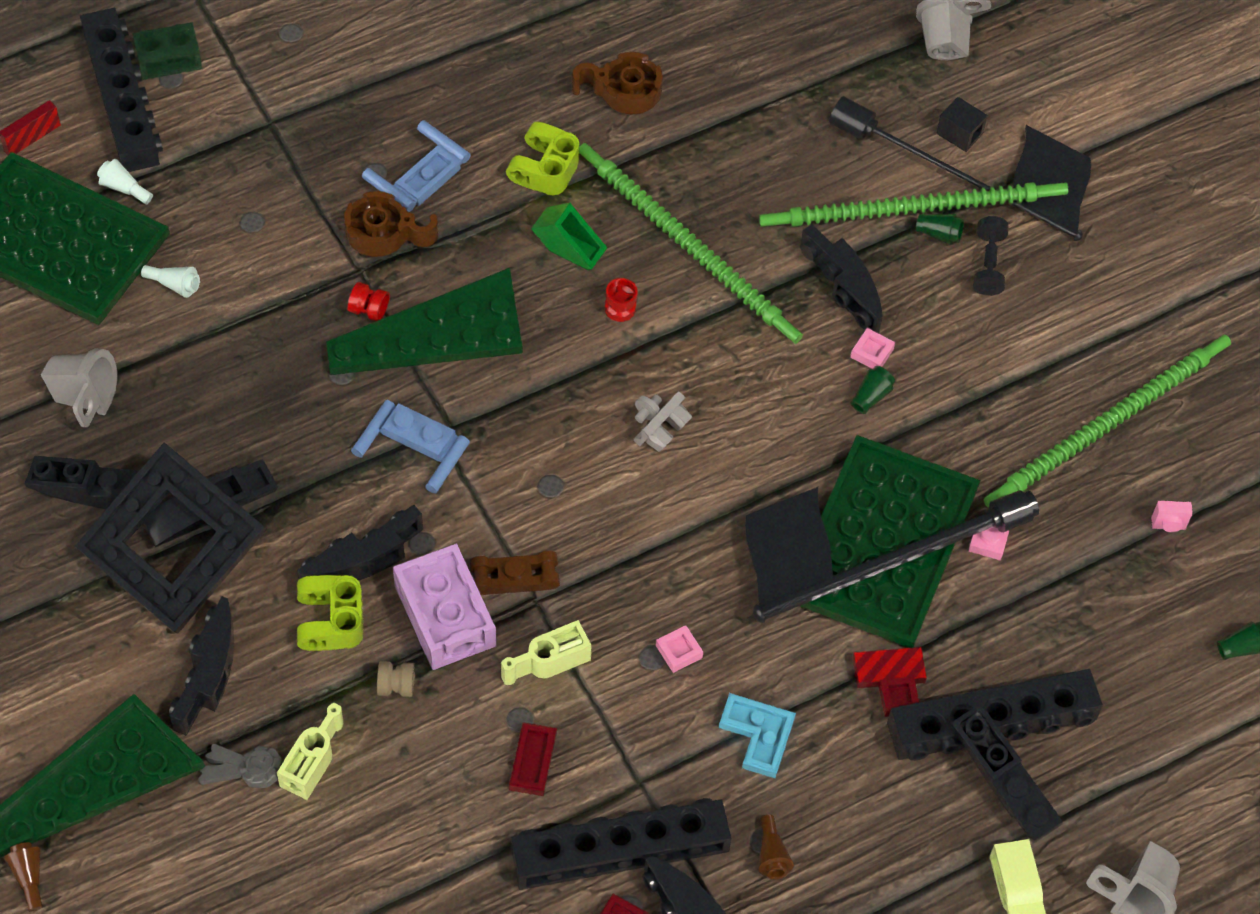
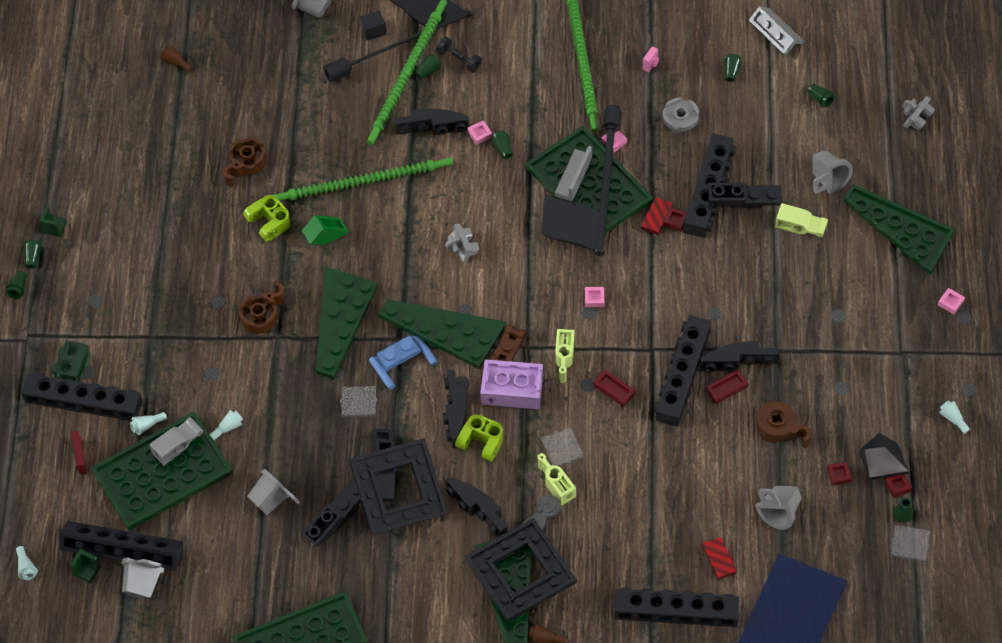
camera: 55 degrees left, 0 degrees up
(98, 223) = (175, 441): none -> light grey piece
(128, 839) = (515, 604): none -> black plate
(309, 423) = (359, 401): none -> clear piece
(368, 301) = (304, 339): red wheel -> none
(383, 737) = (562, 447): none -> clear piece
(395, 679) = (536, 425): dark tan wheel -> none
(427, 174) = (240, 275): medium blue plate -> none
(496, 488) = (455, 333): none -> dark green wing
(621, 299) = (379, 225): red wheel -> none
(767, 728) = (658, 282): medium azure tile -> none
(774, 857) = (727, 311): reddish brown cone -> none
(877, 509) = (574, 174): none -> light grey panel
(1097, 627) = (680, 124): none -> light grey plate

